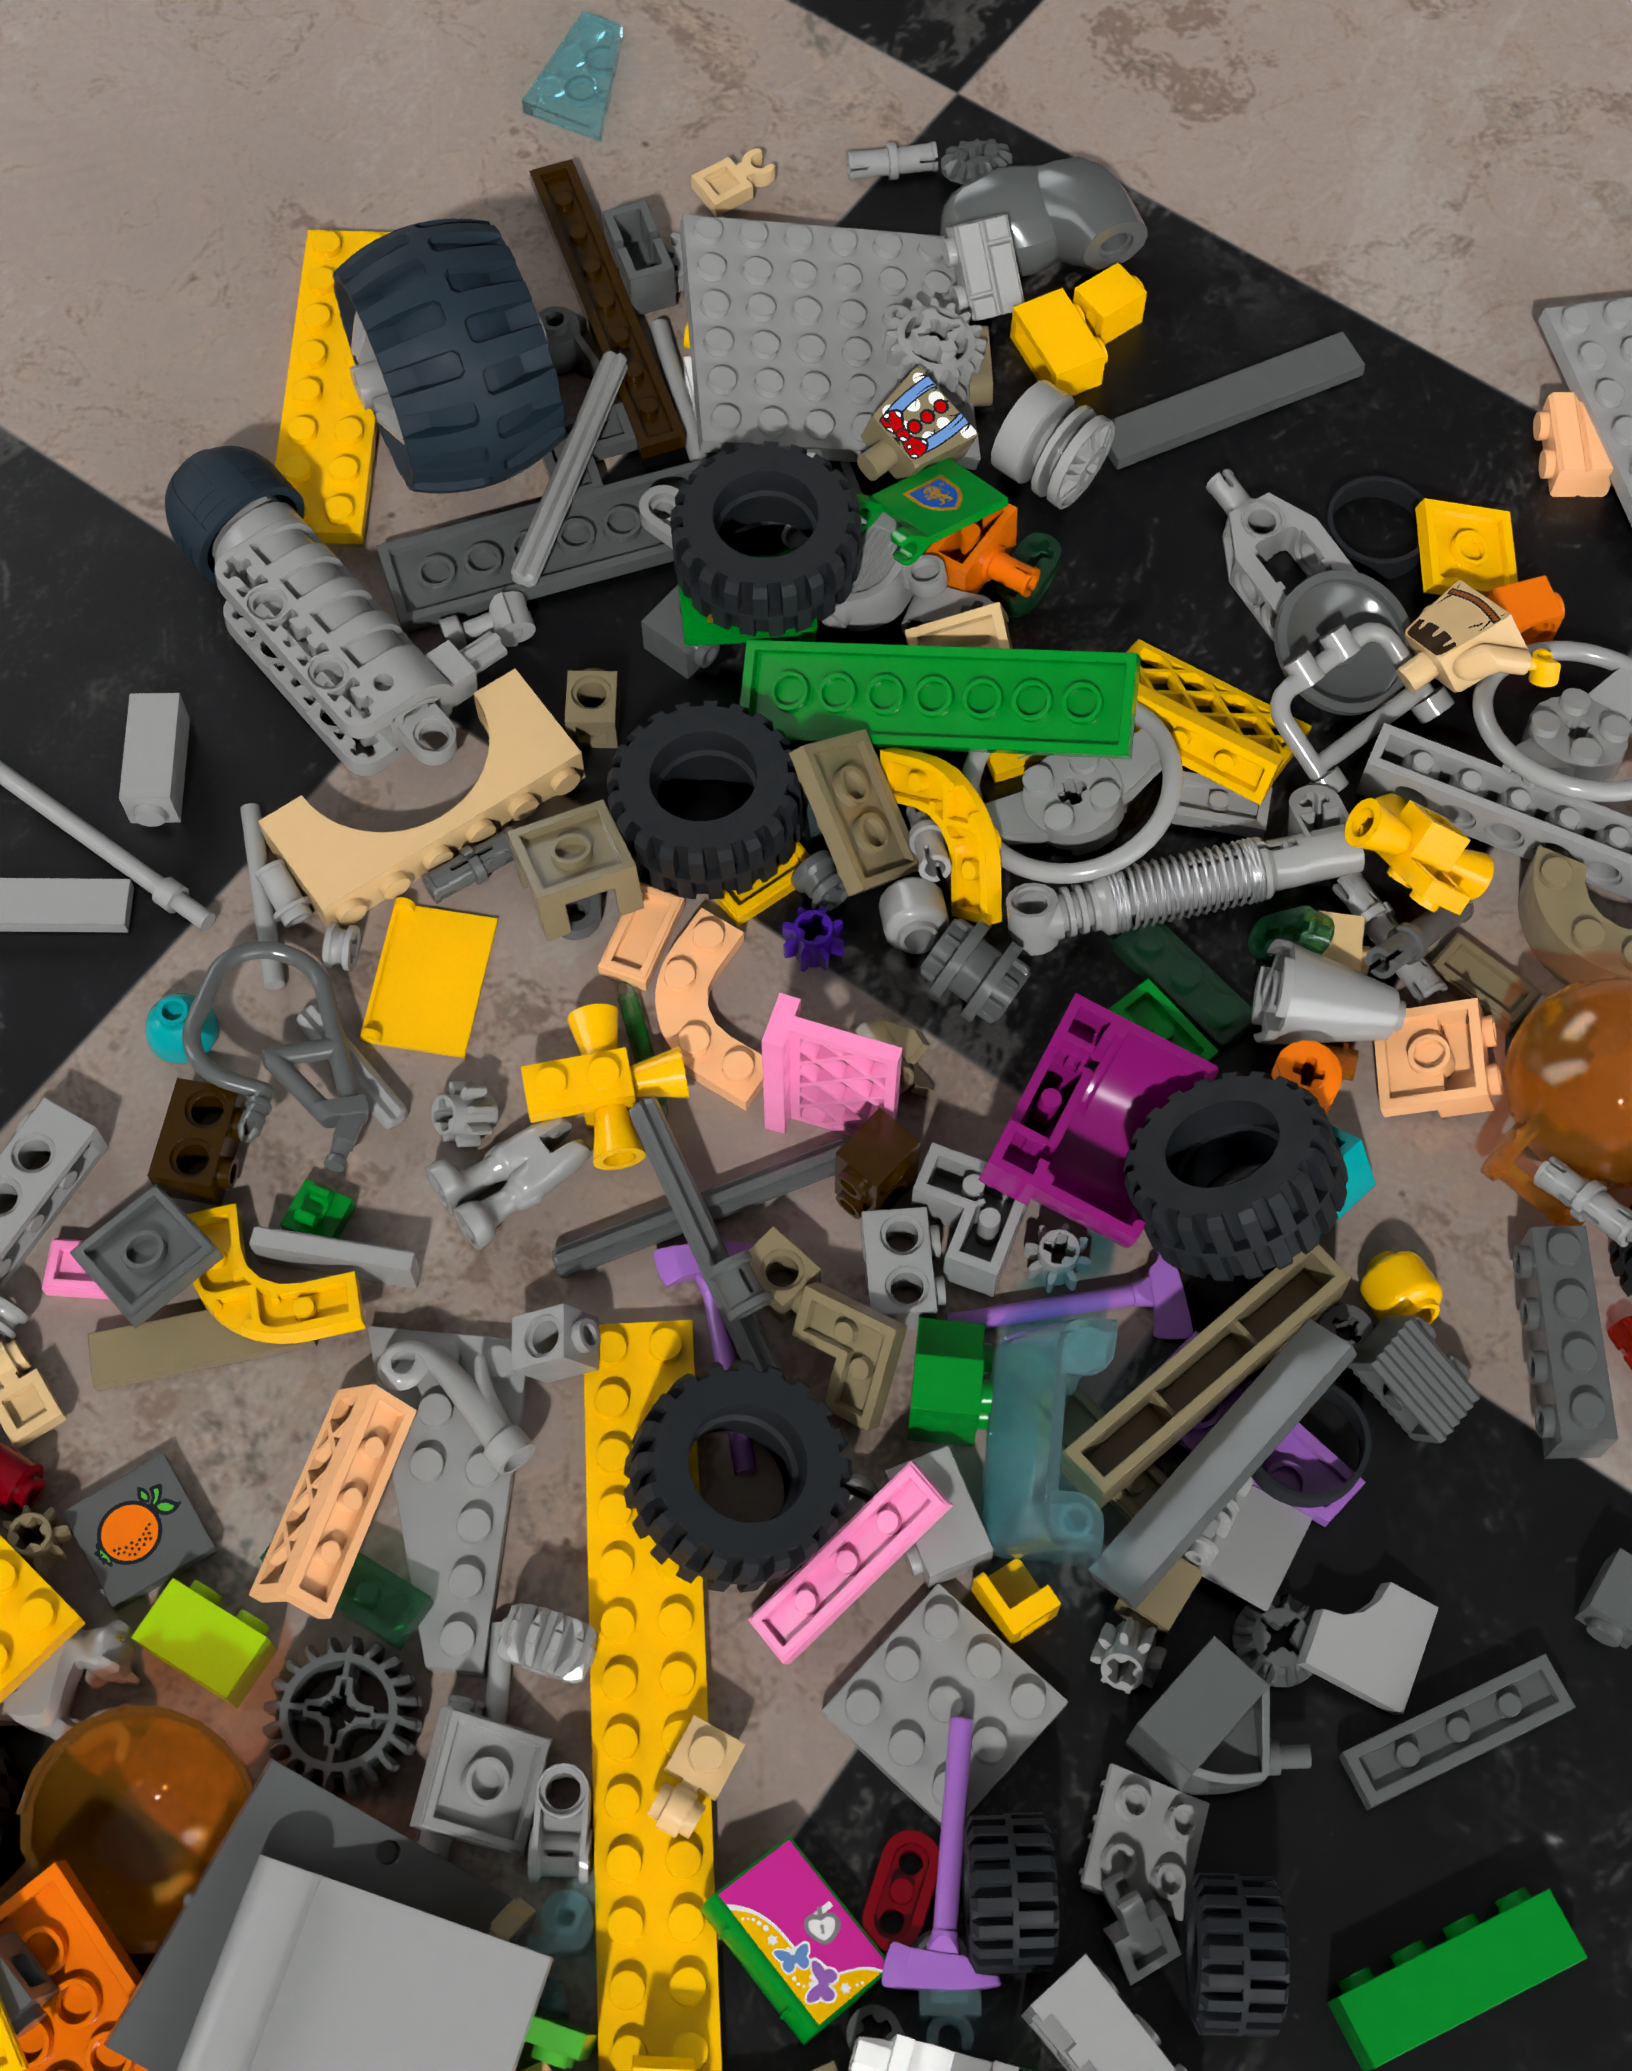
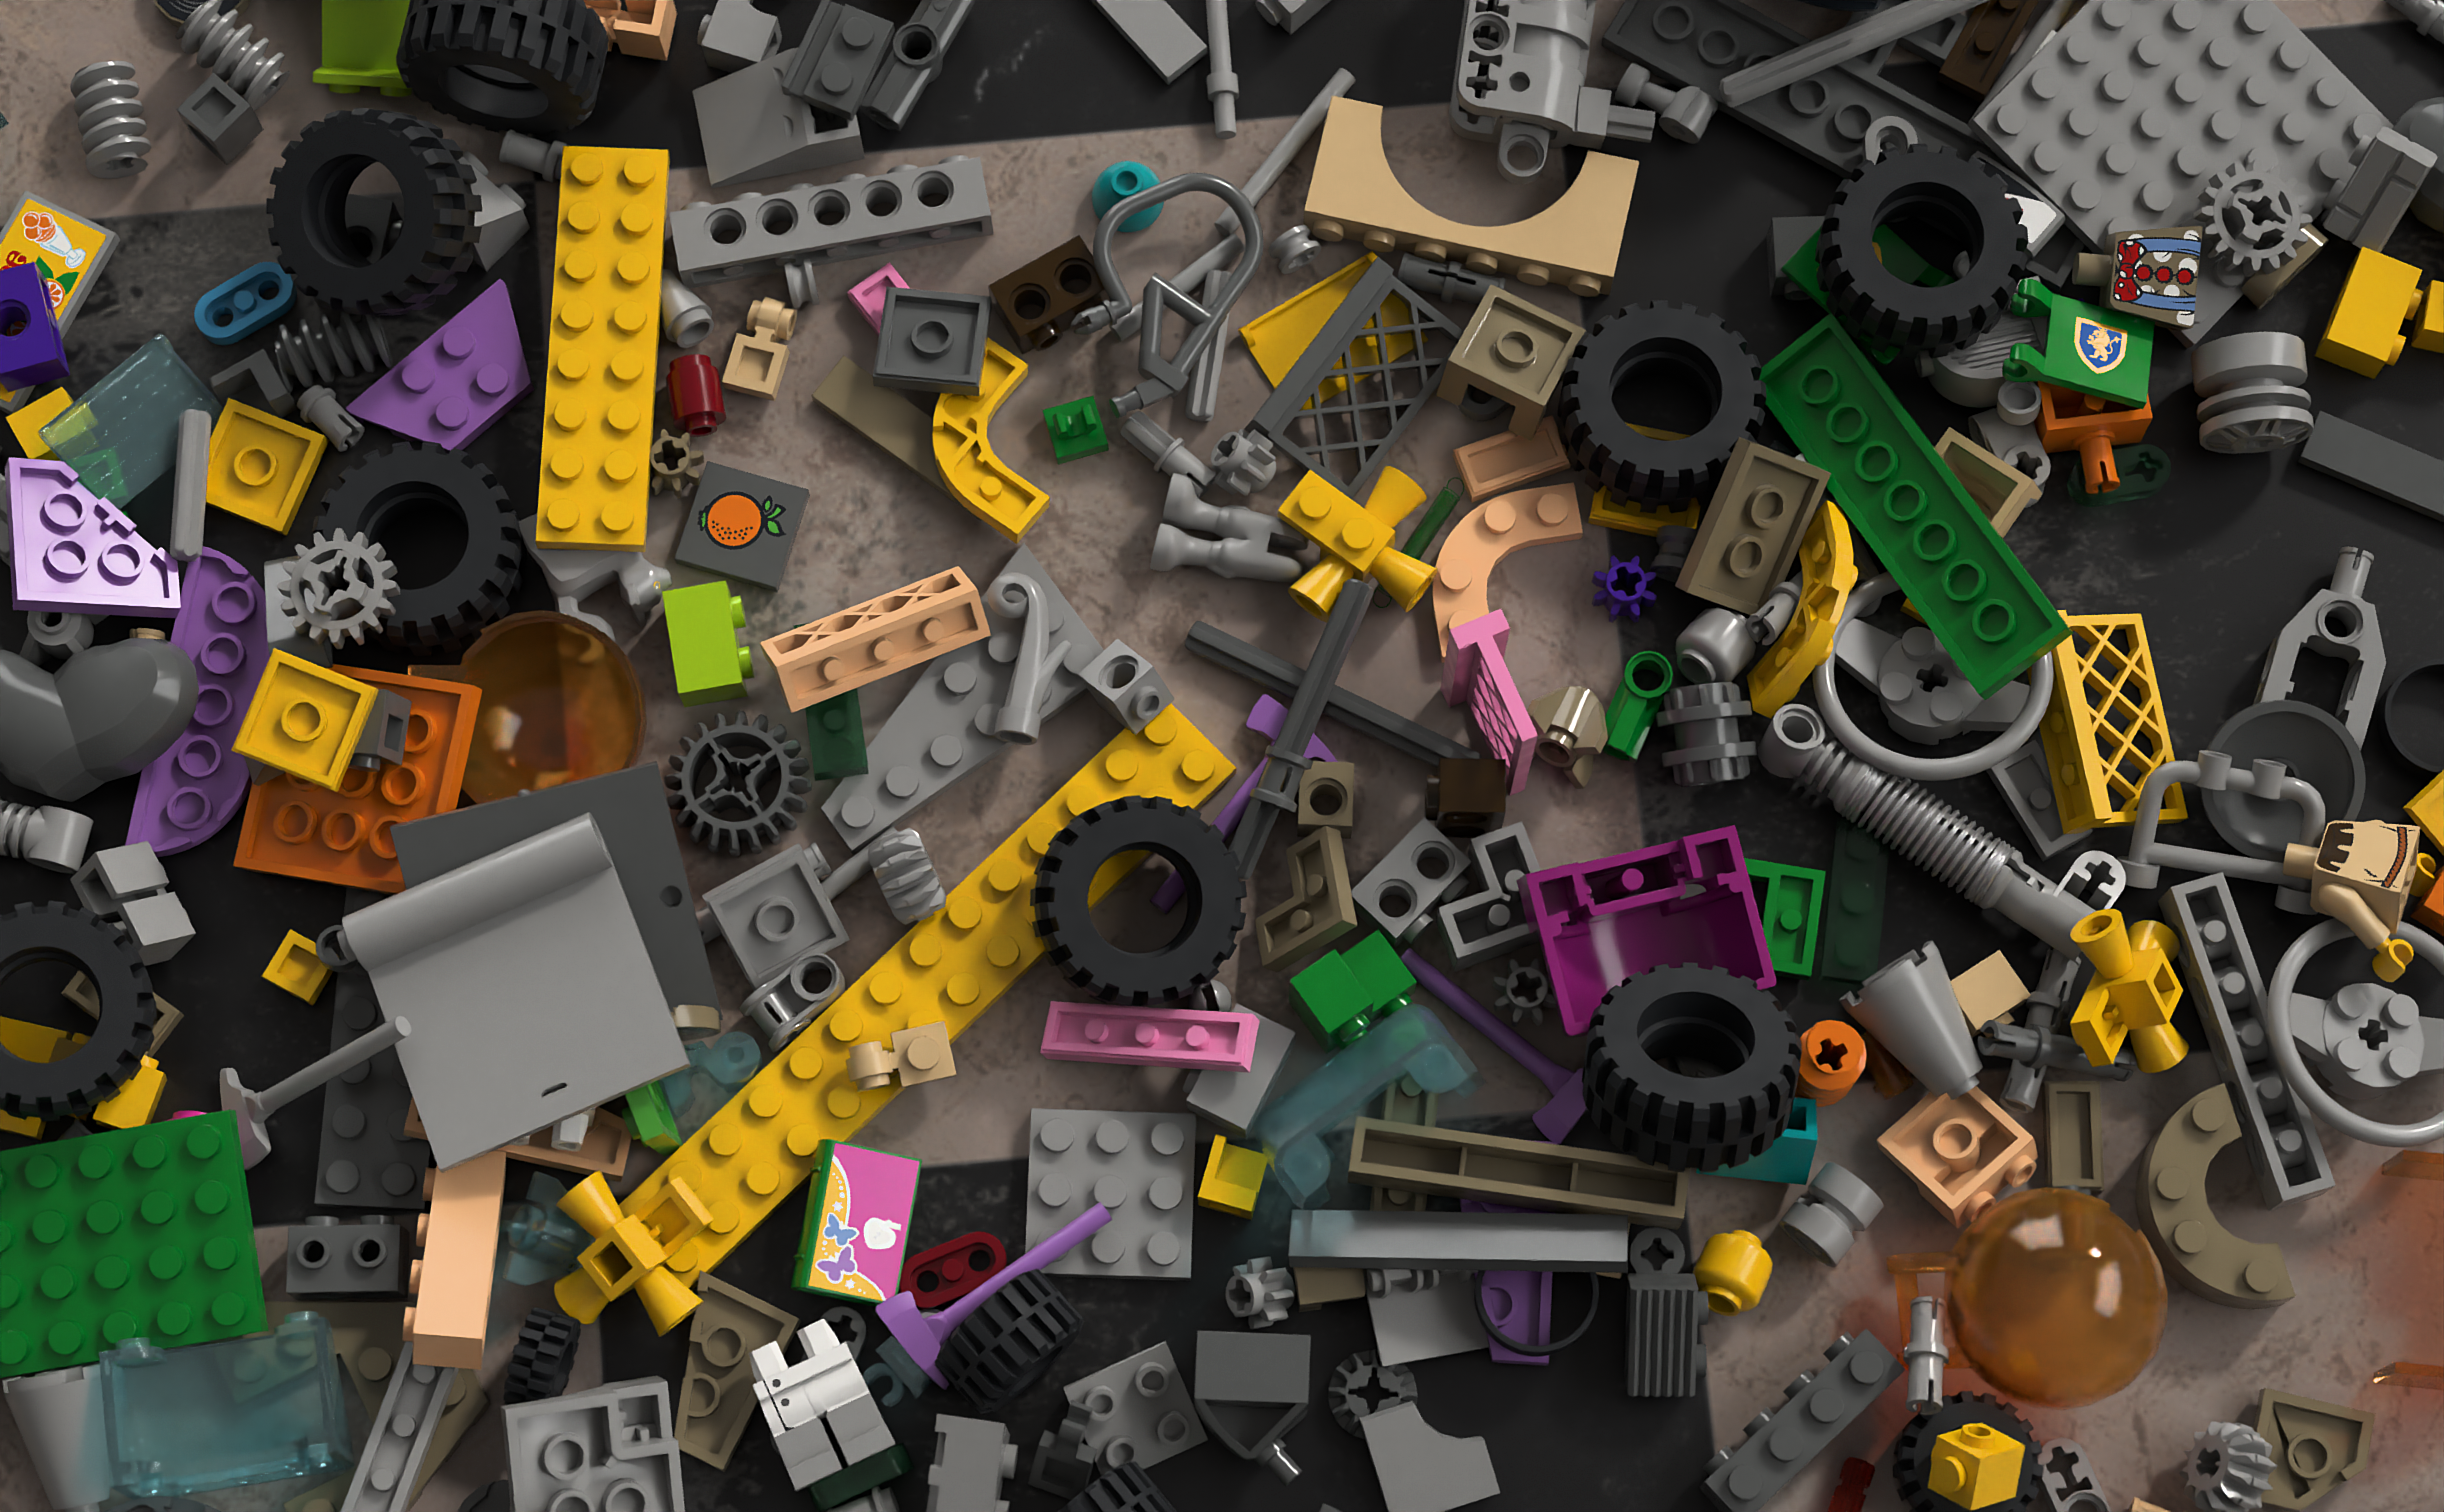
camera: 50 degrees right, 10 degrees up
(283, 894) = (1297, 168): light grey pin -> none
(286, 1034) = (1185, 281): none -> light grey bar
(335, 1256) = (1053, 472): light grey tile -> none
(398, 1163) = (1166, 452): none -> light grey axle
(438, 979) = (1324, 352): none -> dark grey fence
(597, 725) = (1664, 269): dark tan brick -> none
(907, 1003) = (1634, 709): none -> green piece
(1299, 925) = (1962, 950): clear green beam -> none
(1412, 1176) = (1831, 1214): none -> light grey wheel

